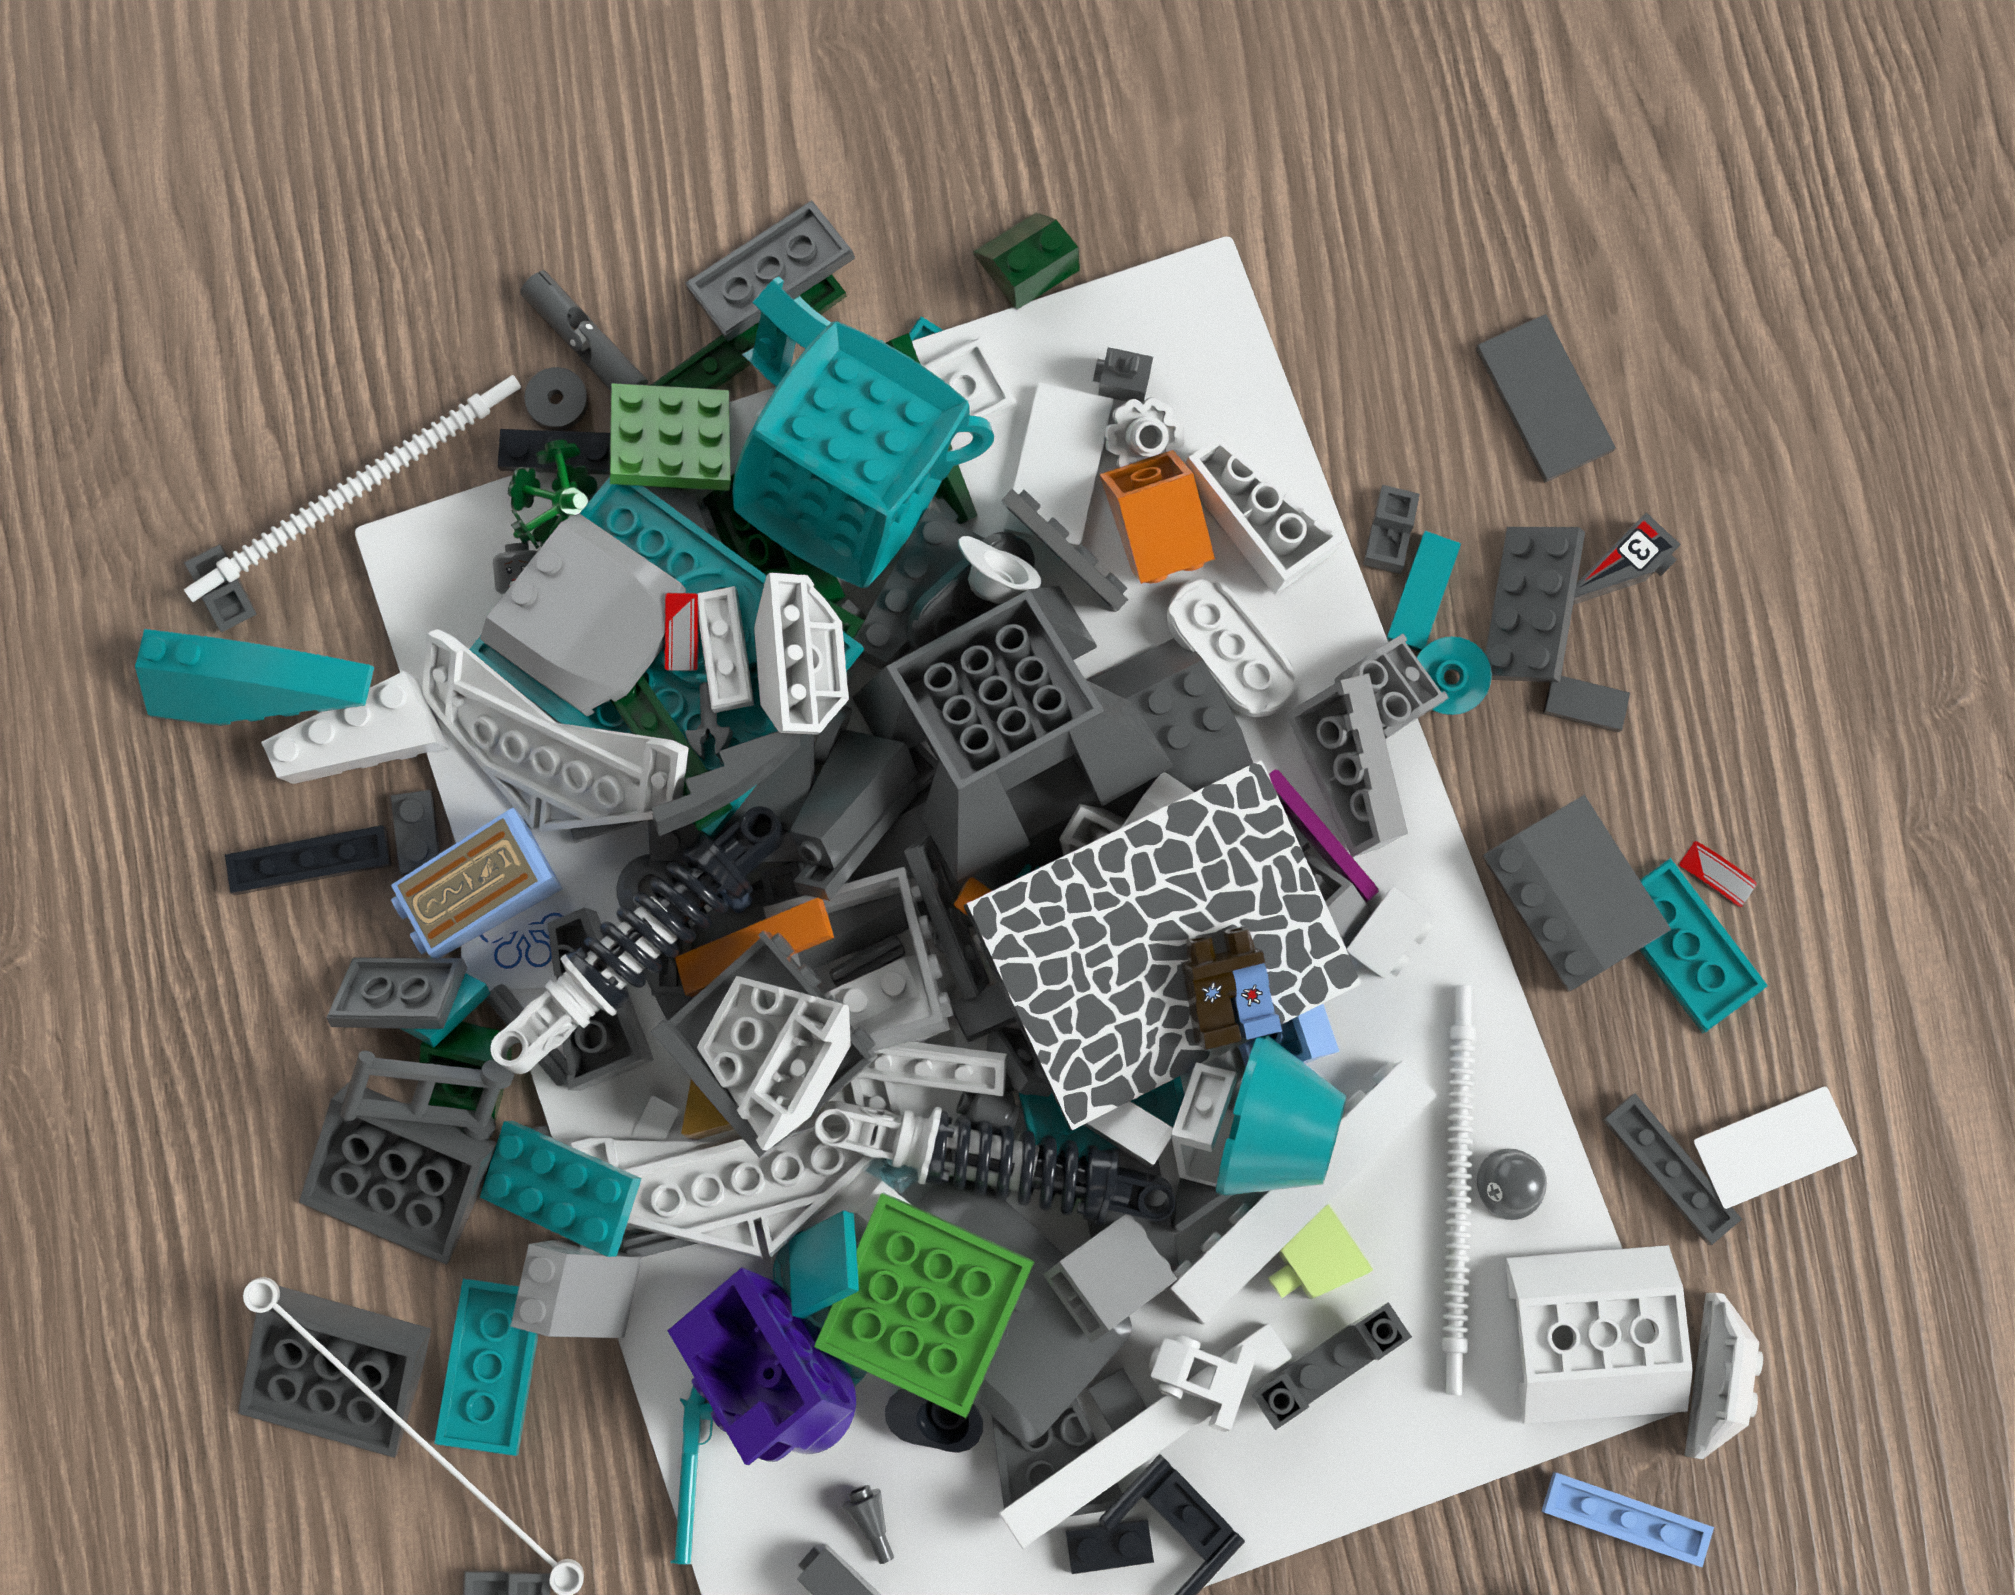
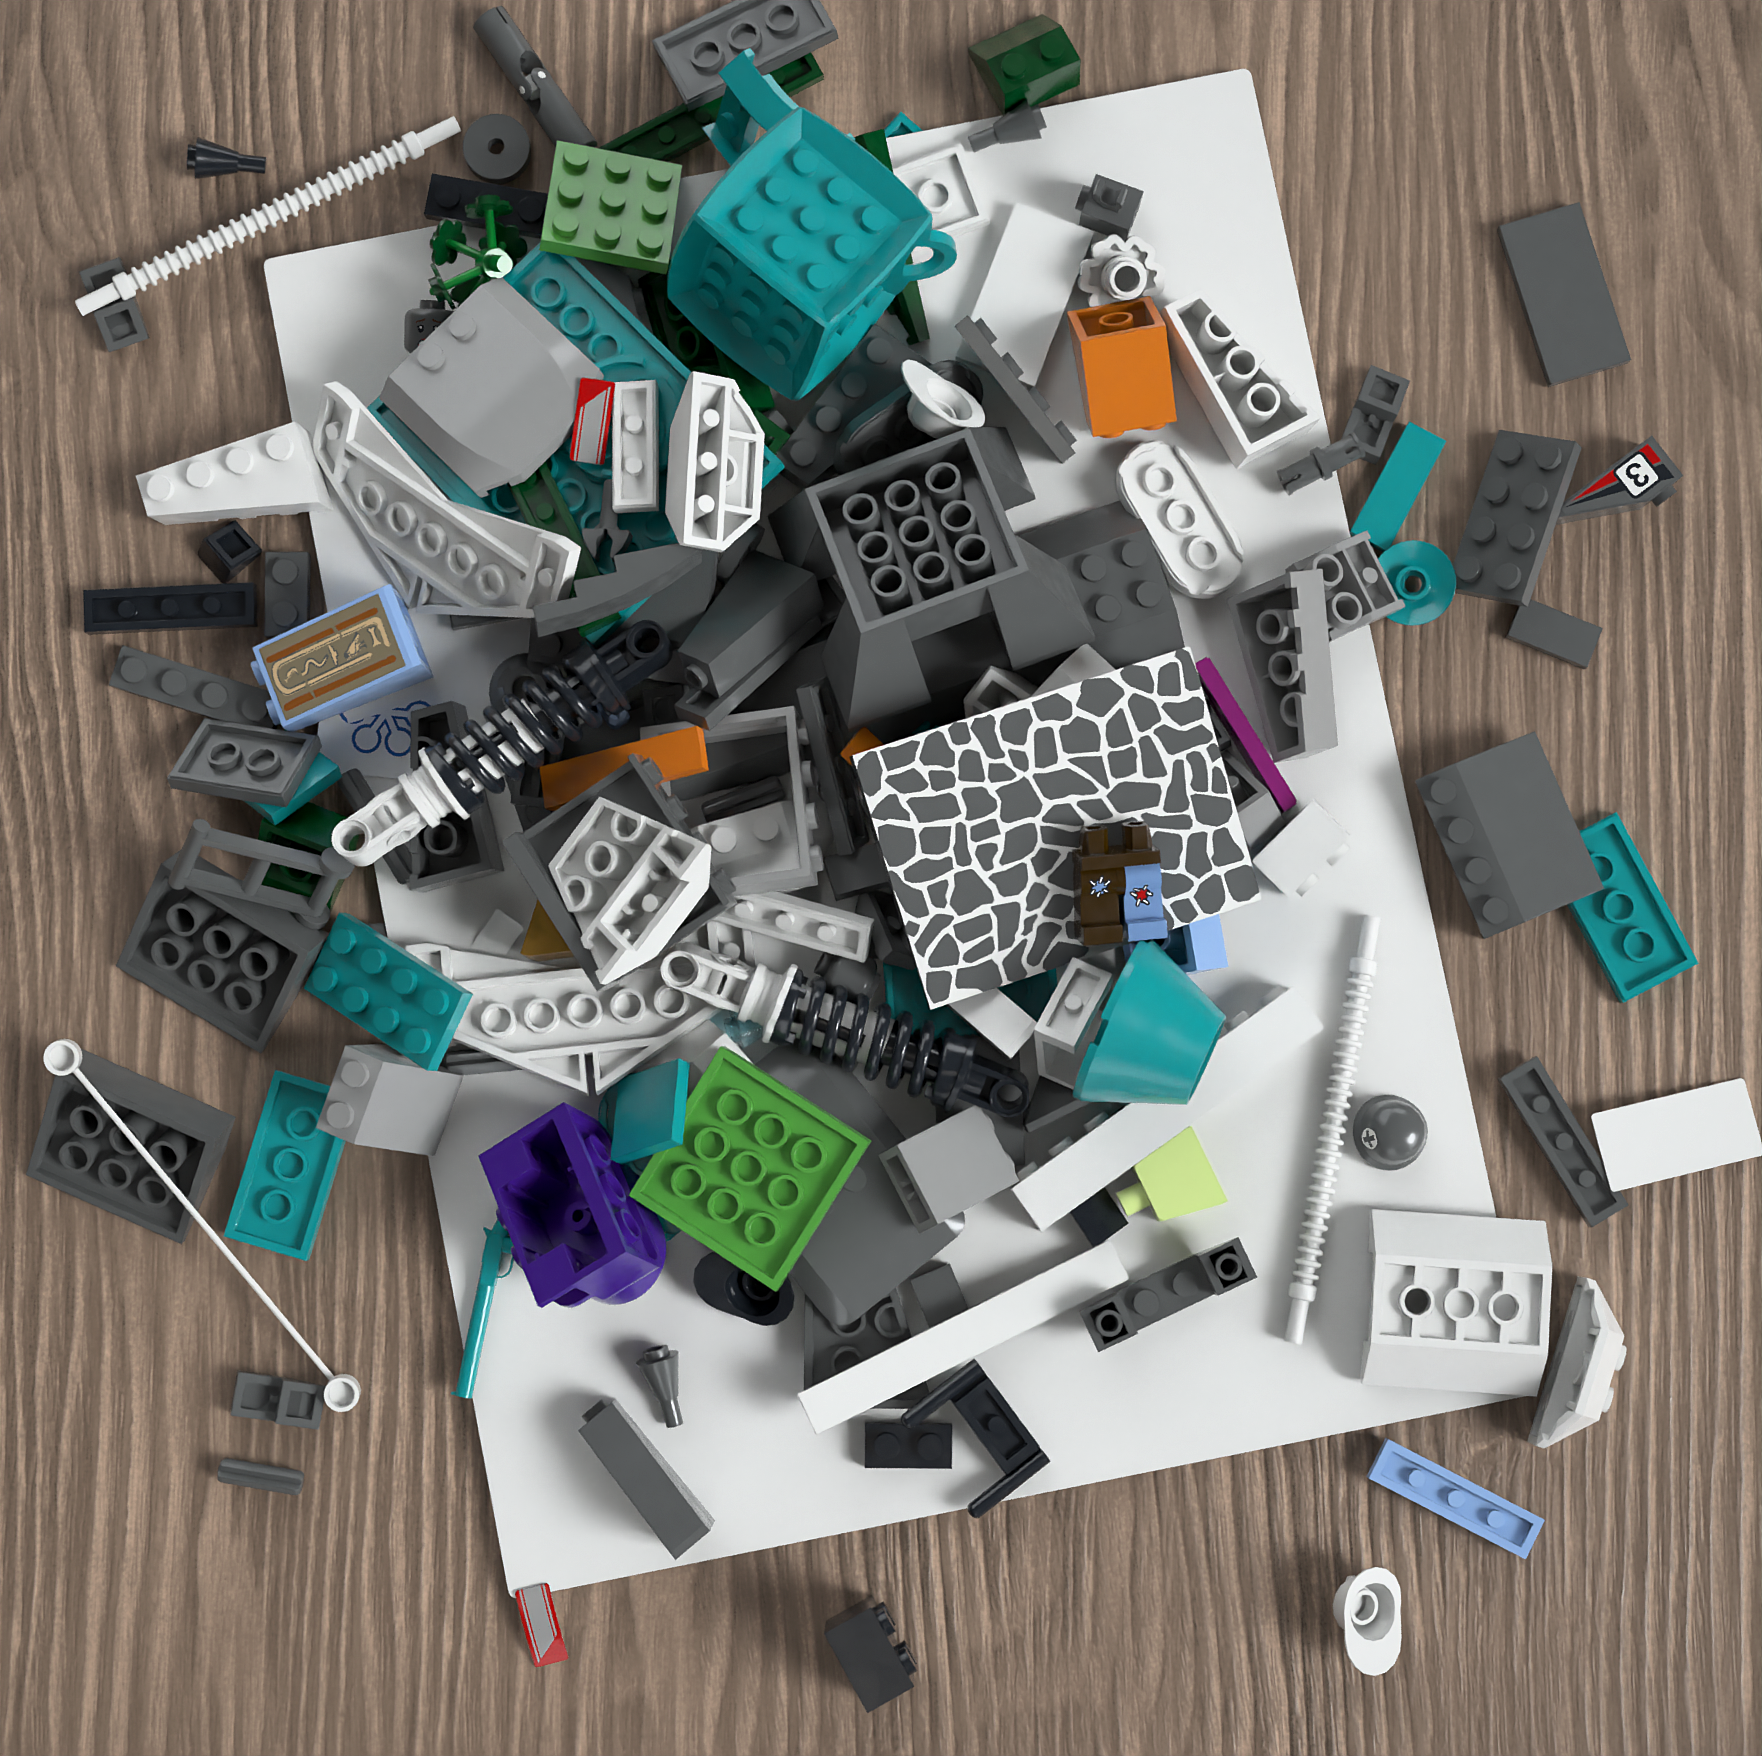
camera: 15 degrees right, 5 degrees up
(238, 680) = (119, 407): teal wedge -> none
(297, 443) = (216, 160): none -> black cone
(337, 932) = (190, 688): none -> dark grey plate
(355, 800) = (228, 551): none -> black slope
(1028, 314) = (1017, 125): none -> dark grey cone
(1172, 1365) = (1001, 1267): white tile -> none
(1255, 1303) = (1099, 1217): none -> black slope
(1351, 579) = (1321, 463): none -> dark grey pin
(1718, 873) = (1665, 835): sticker -> none

